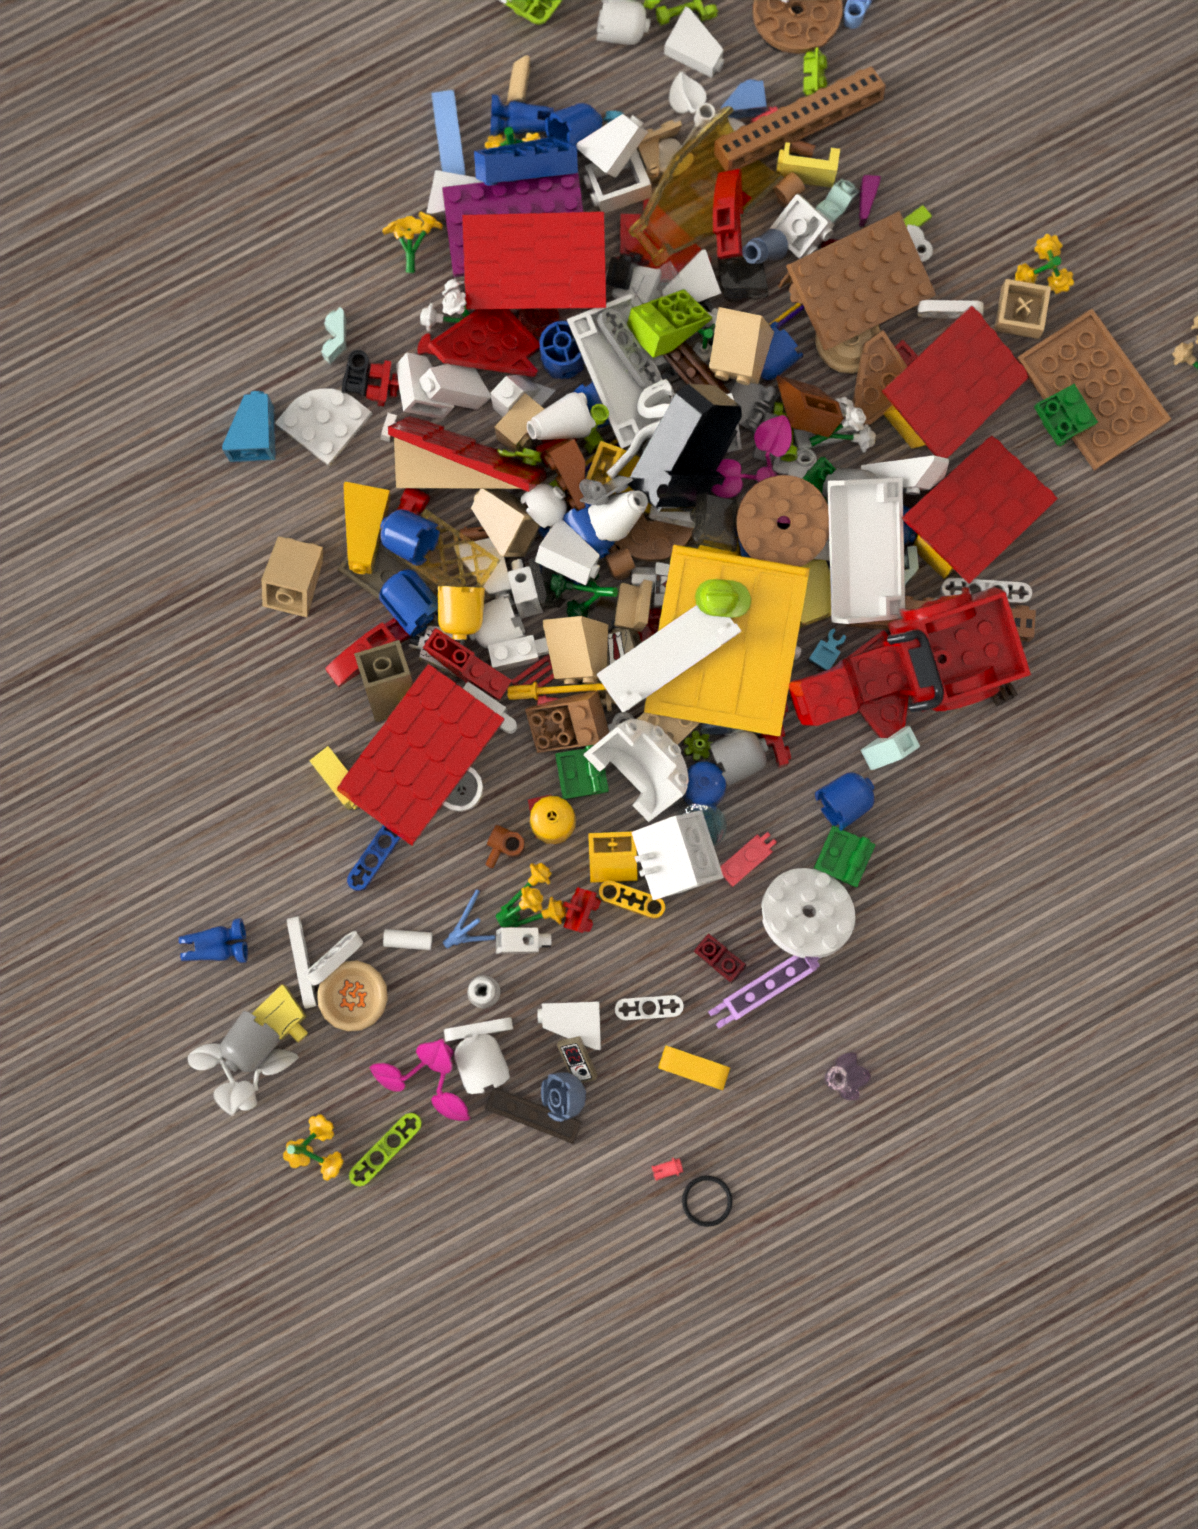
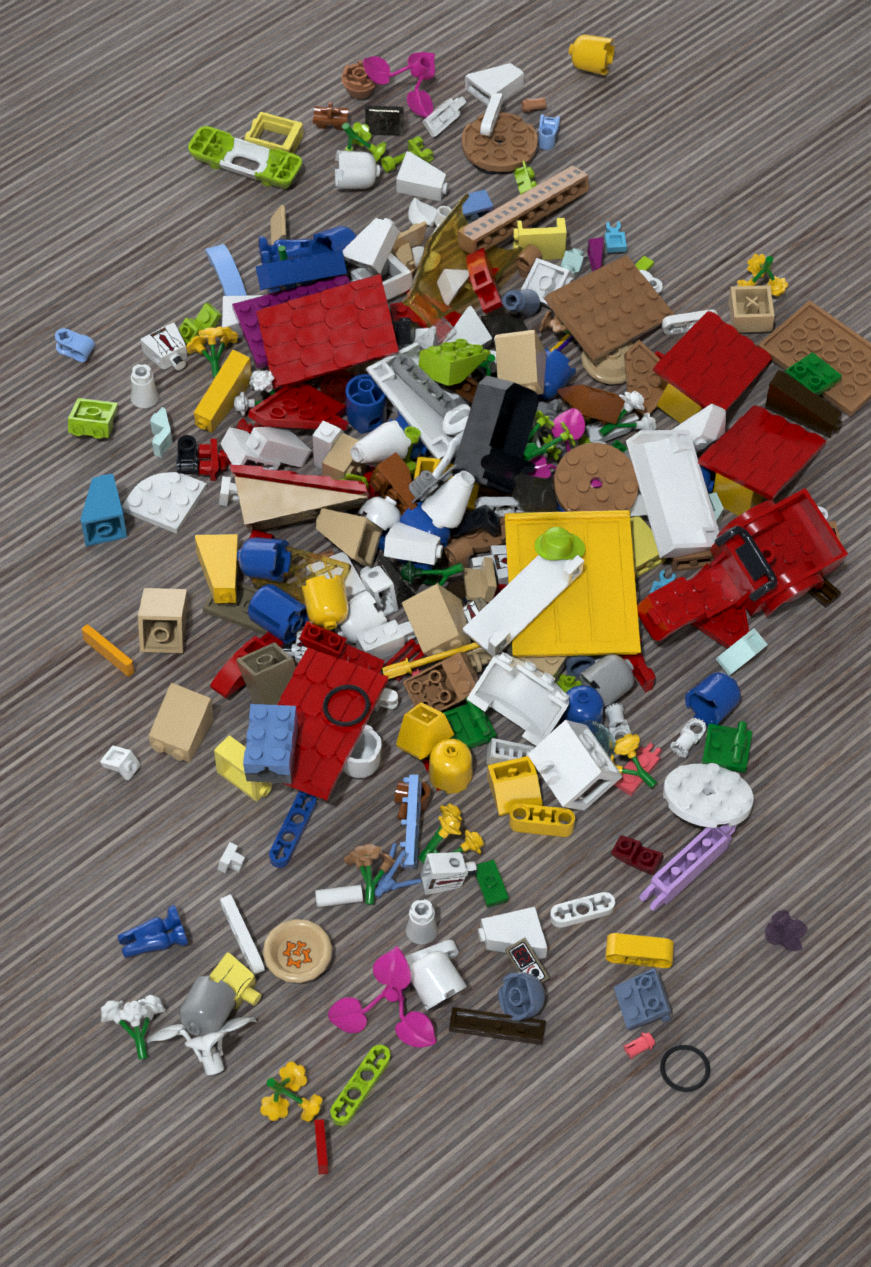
camera: 15 degrees left, 25 degrees down
(175, 1037) = (133, 1013): none -> white plant
(217, 737) = (121, 761): none -> white bracket
(228, 601) = (108, 650): none -> light orange tile
(263, 200) = (76, 346): none -> light blue piece
(263, 301) = (92, 418): none -> lime plate
(285, 711) = (181, 723): none -> tan slope
(306, 875) = (231, 859): none -> white tile
(326, 276) = (143, 387): none -> white plant
(332, 1208) = (321, 1146): none -> red tile
(334, 958) = (272, 921): white beam -> none
(361, 223) = (165, 347): none -> white torso
(364, 779) = (271, 743): none -> medium blue piece
(401, 201) = (206, 318): none -> lime slope
(409, 301) = (220, 396): none -> yellow slope
(440, 916) = (362, 857): none -> medium nougat plant
(465, 763) = (353, 722): none -> black tyre
(497, 878) = (413, 821): none -> light blue hinge
(531, 775) = (422, 730): none -> yellow slope
(563, 957) = (491, 884): none -> green plate
(579, 910) = (494, 837): red hips -> none
(617, 820) = (501, 746): none -> white slope
(651, 530) = (478, 518): none -> black bracket
(682, 1123) = (643, 999): none -> sand blue plate
(692, 207) = (451, 283): none -> white slope
(737, 849) = (627, 746): none -> yellow plant
(738, 805) = (617, 724): none -> white connector
(749, 454) = (531, 449): none -> plant
(807, 836) = (688, 737): none -> white connector
(894, 176) = (614, 239): none -> medium azure plate
(1044, 451) = (802, 405): none -> dark brown slope

